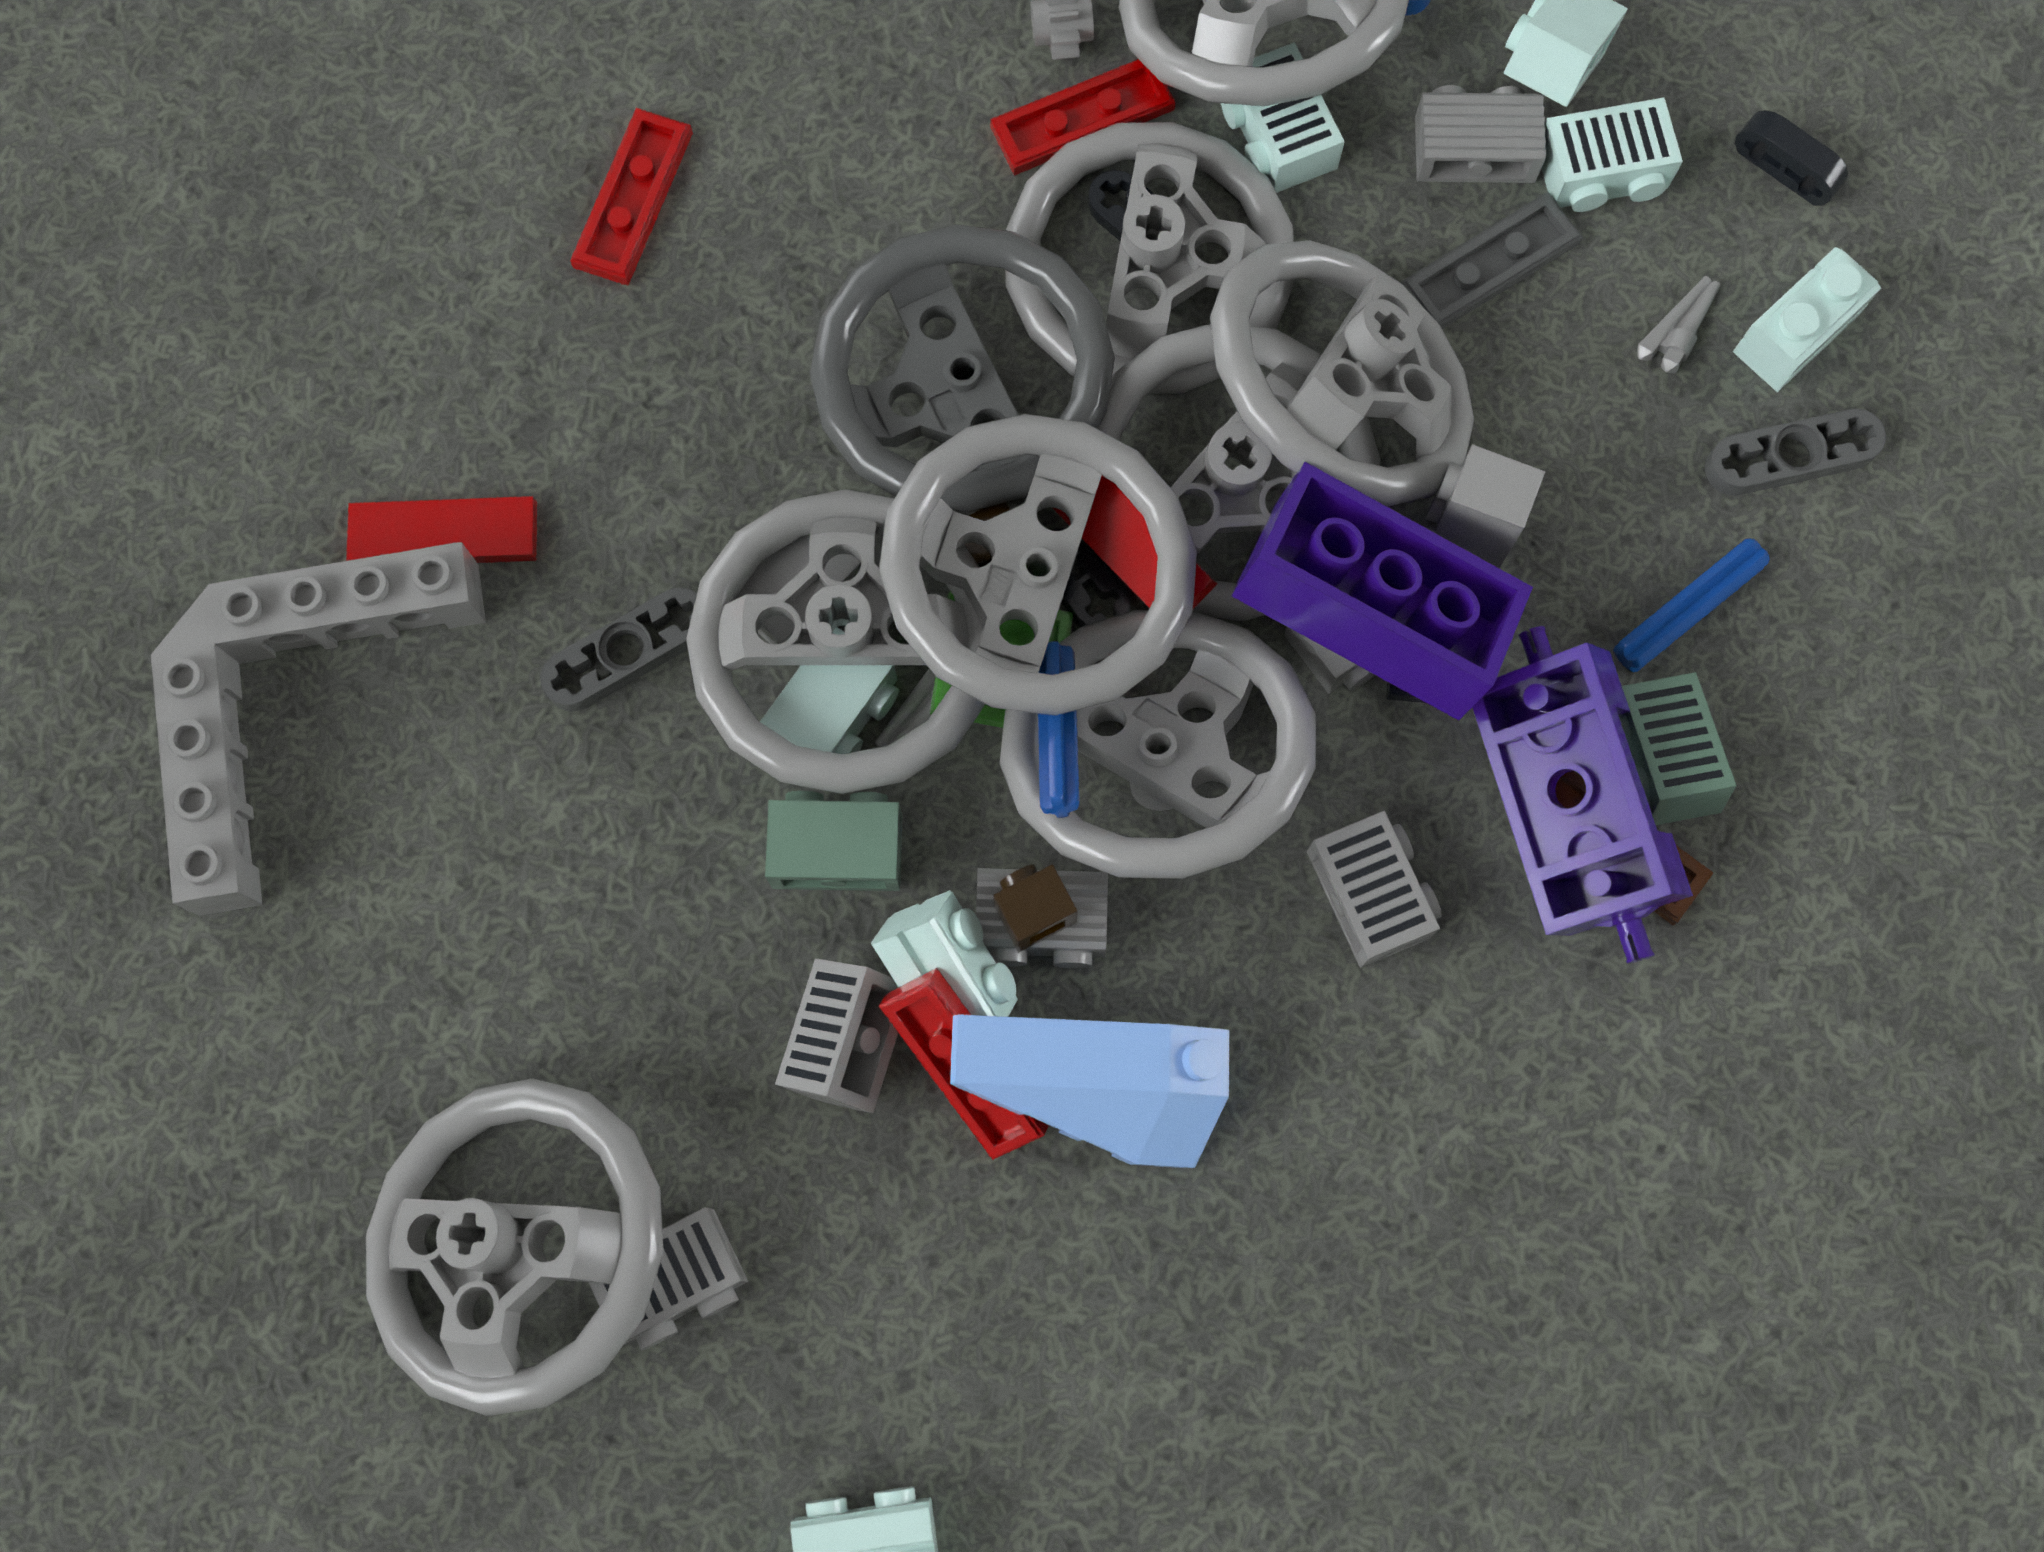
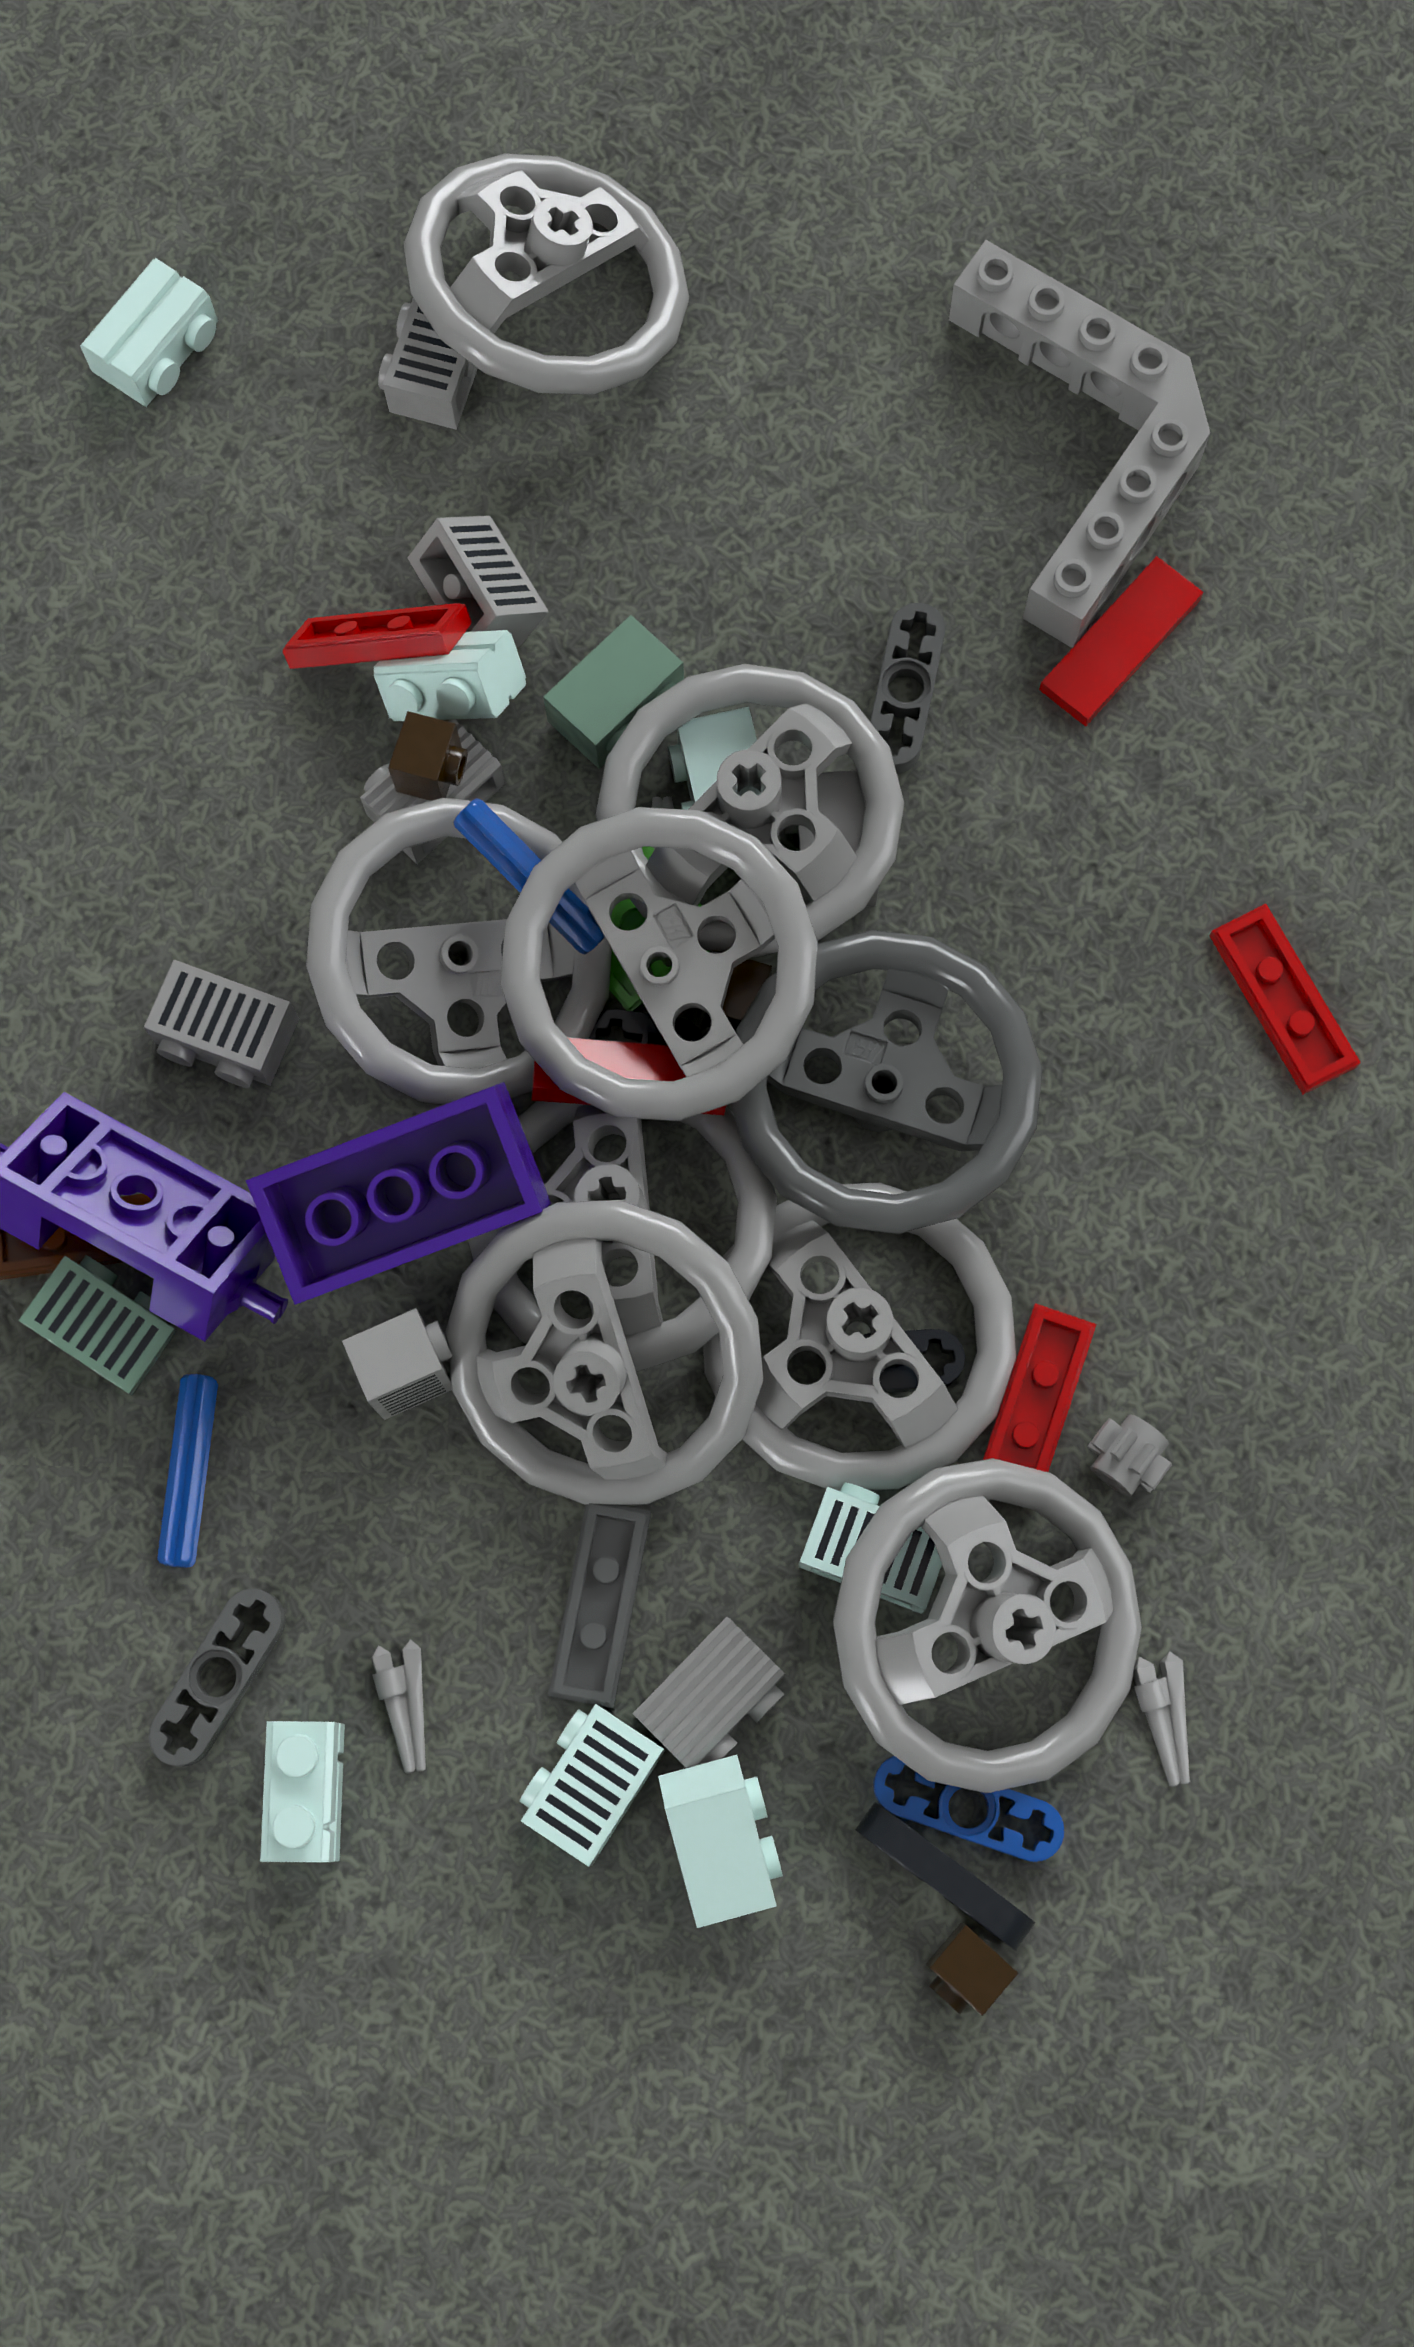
camera: 135 degrees right, 0 degrees up
(1119, 1085) = (275, 714): light blue wedge -> none
(1792, 157) = (446, 1939): black beam -> none

